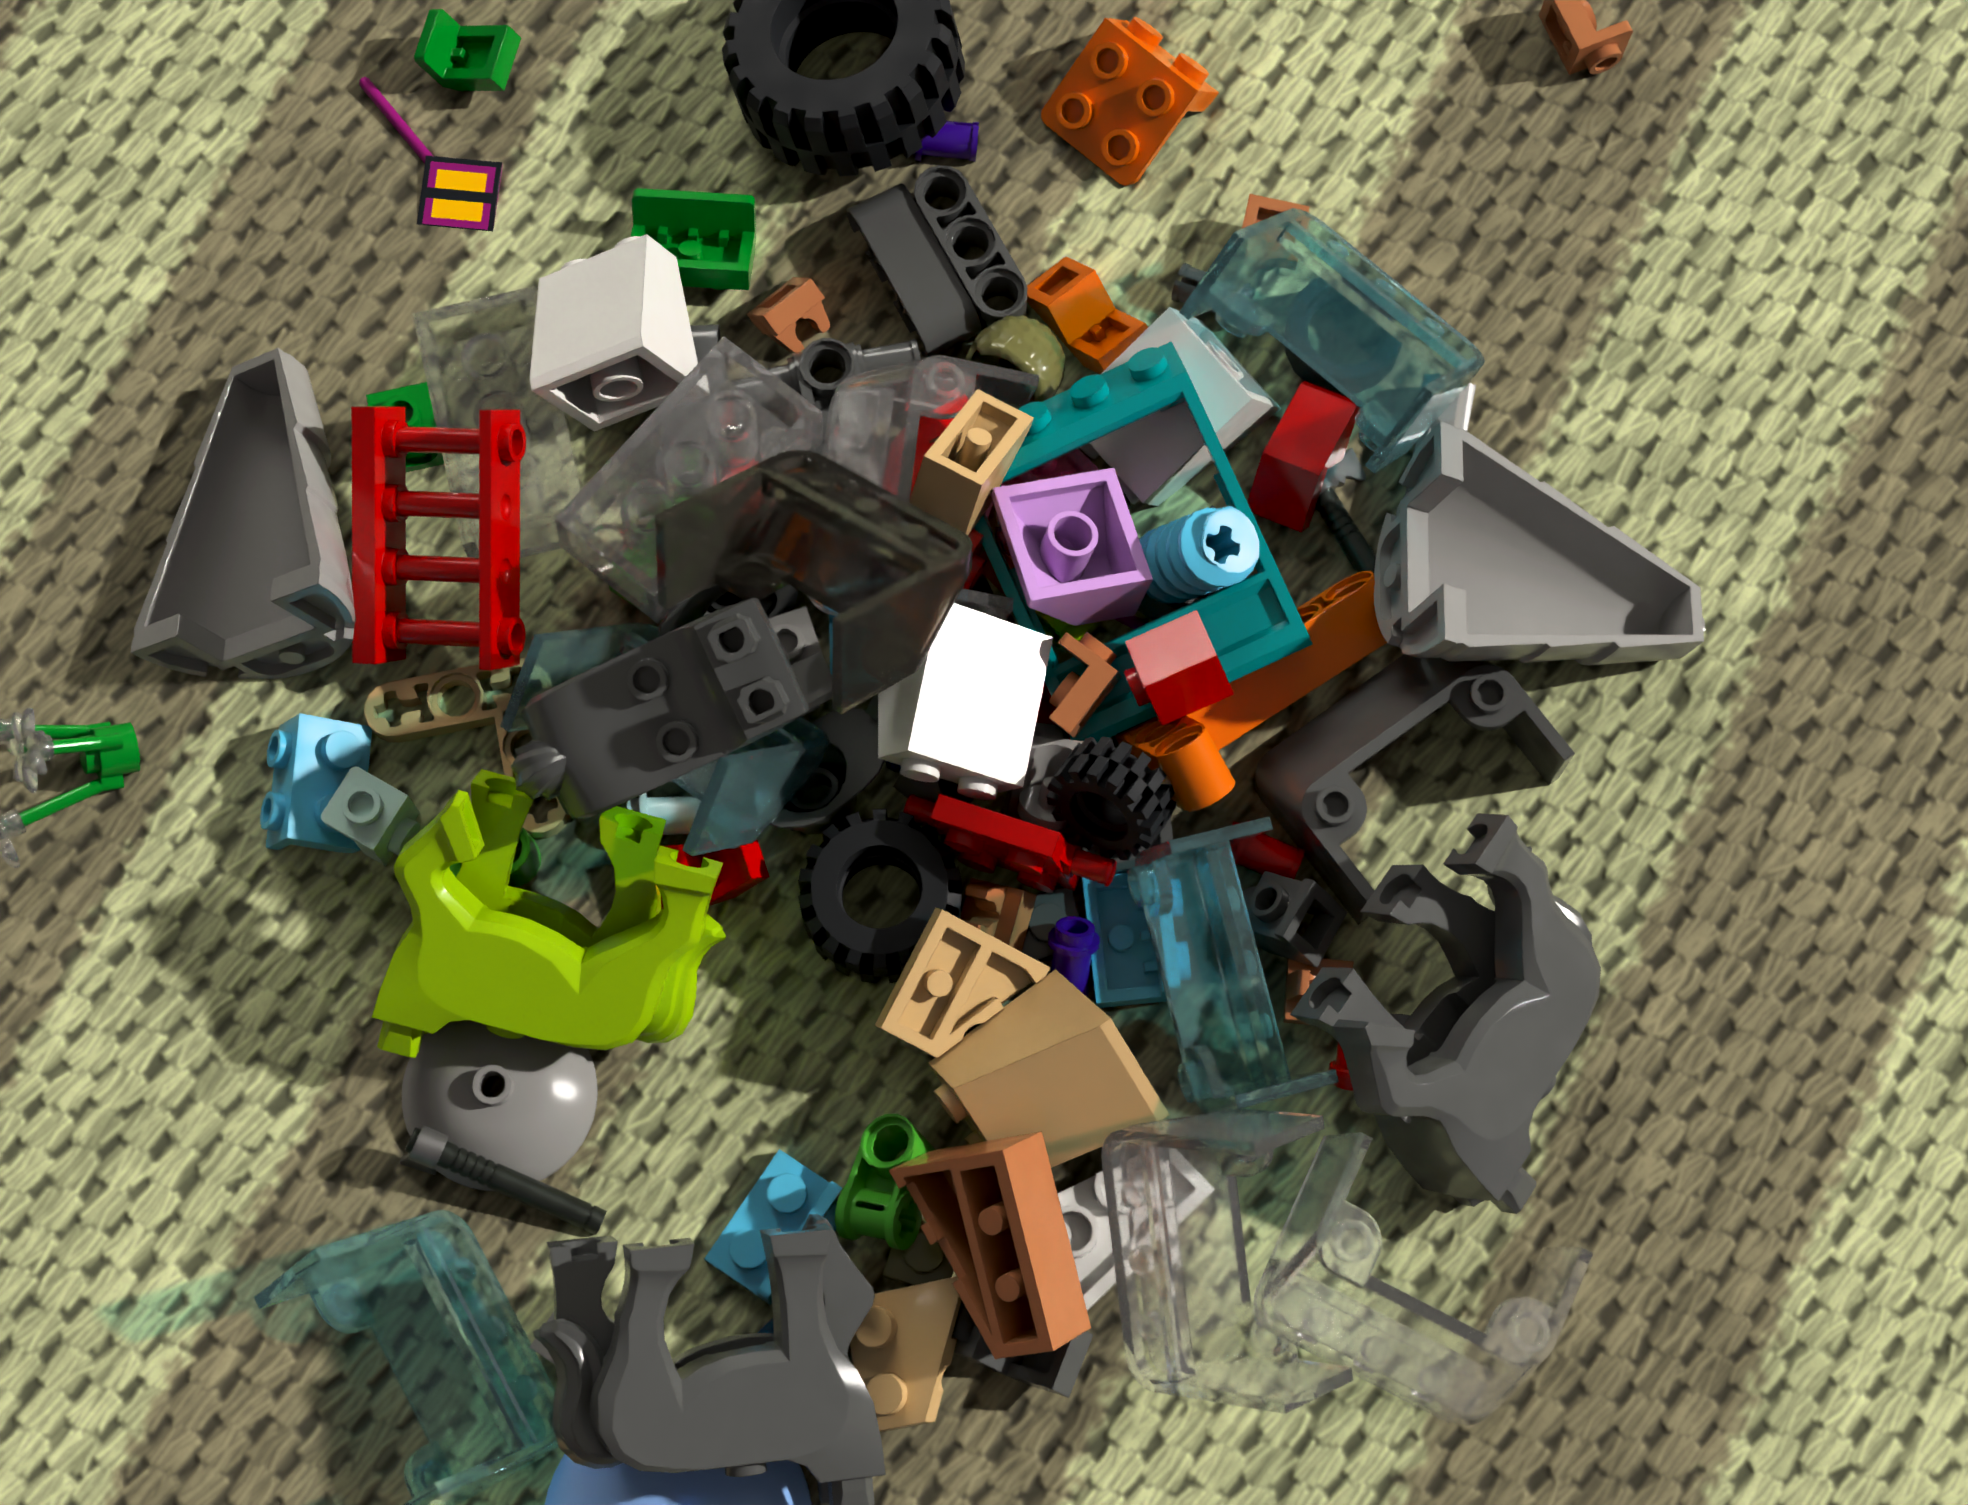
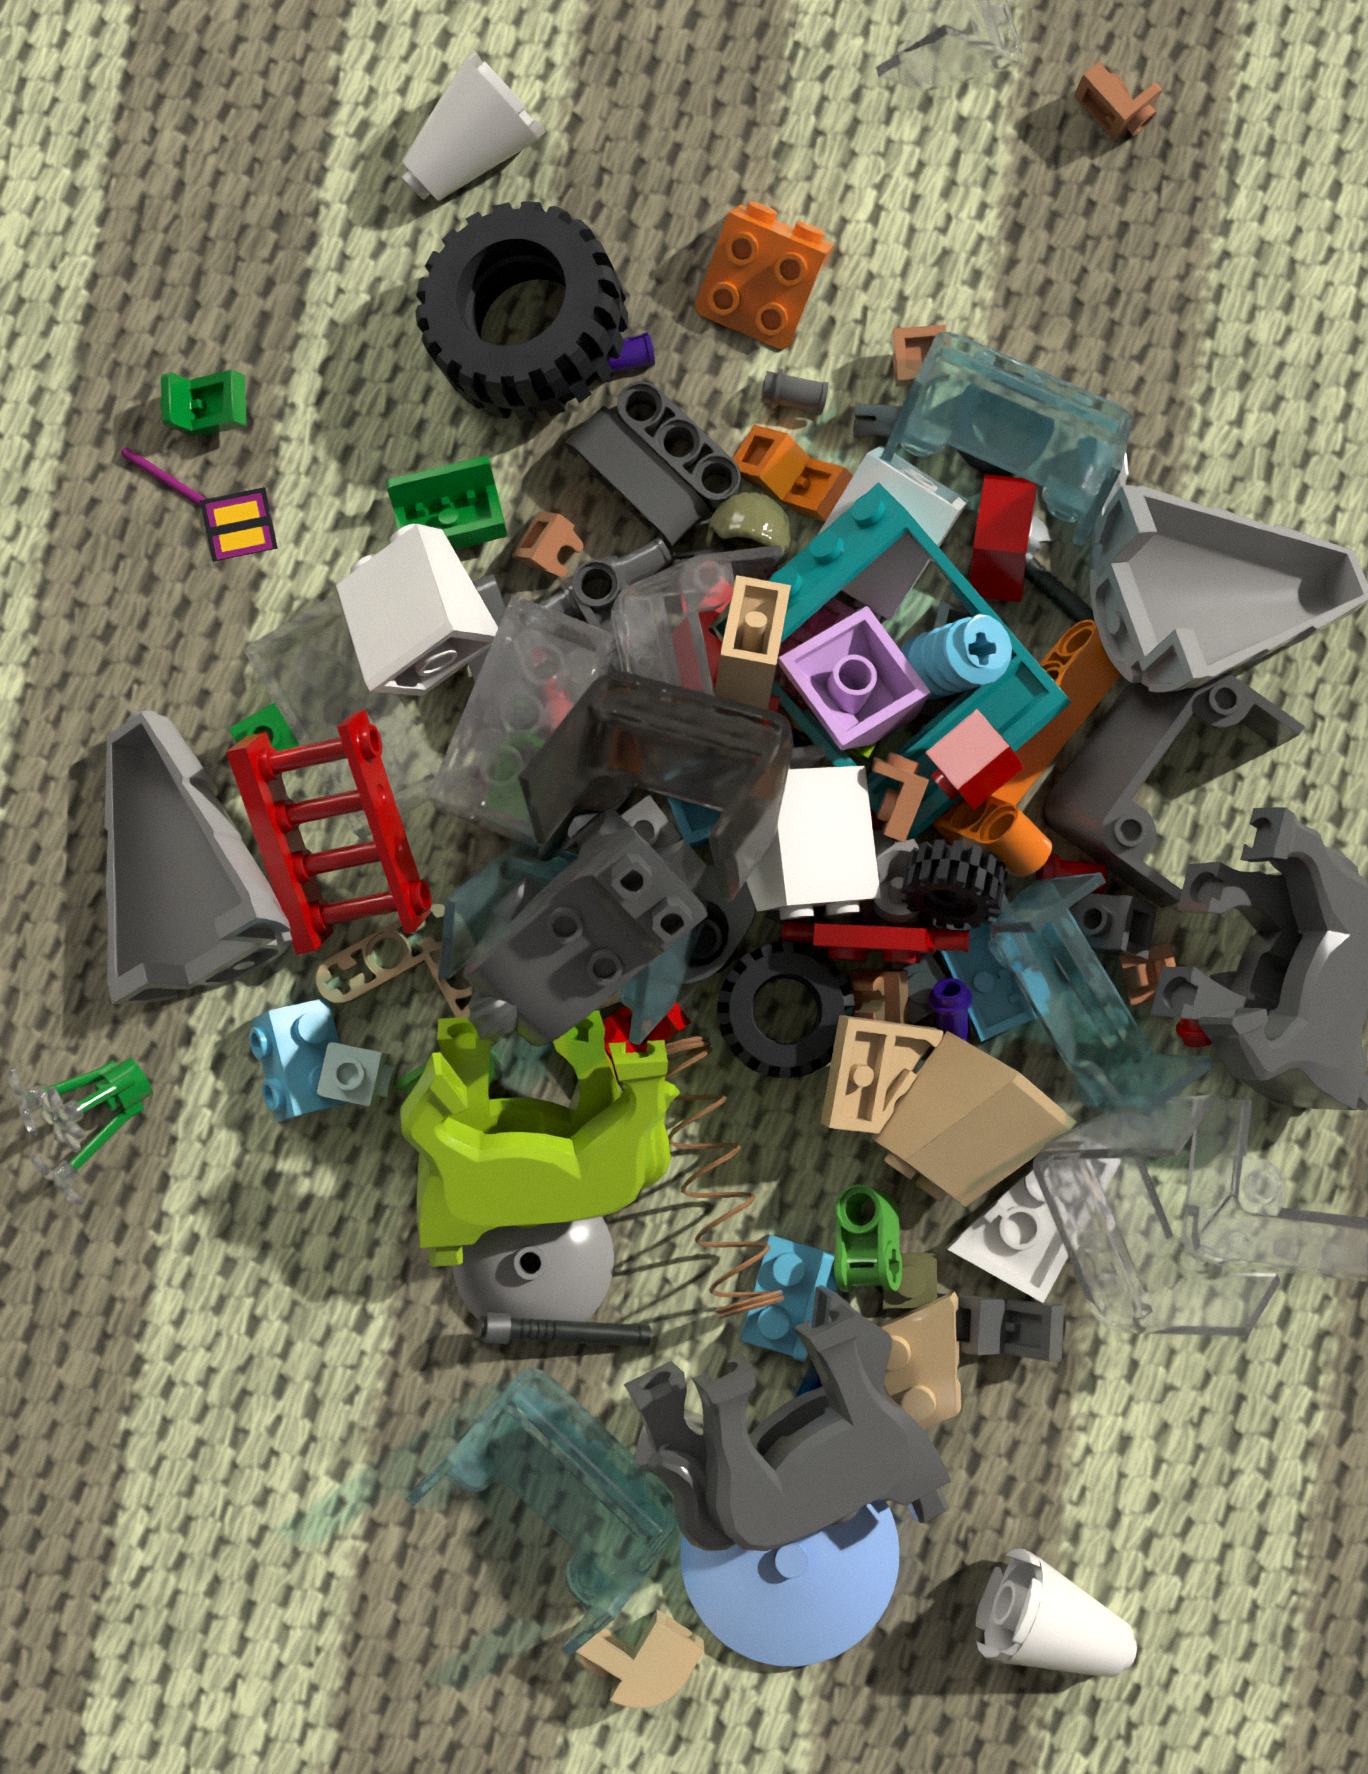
camera: 20 degrees left, 10 degrees up
(749, 1208) = (761, 1299): none -> medium nougat piece
(1005, 1239) = (979, 1261): nougat wedge -> none
(1119, 233) = (793, 392): none -> dark grey pin

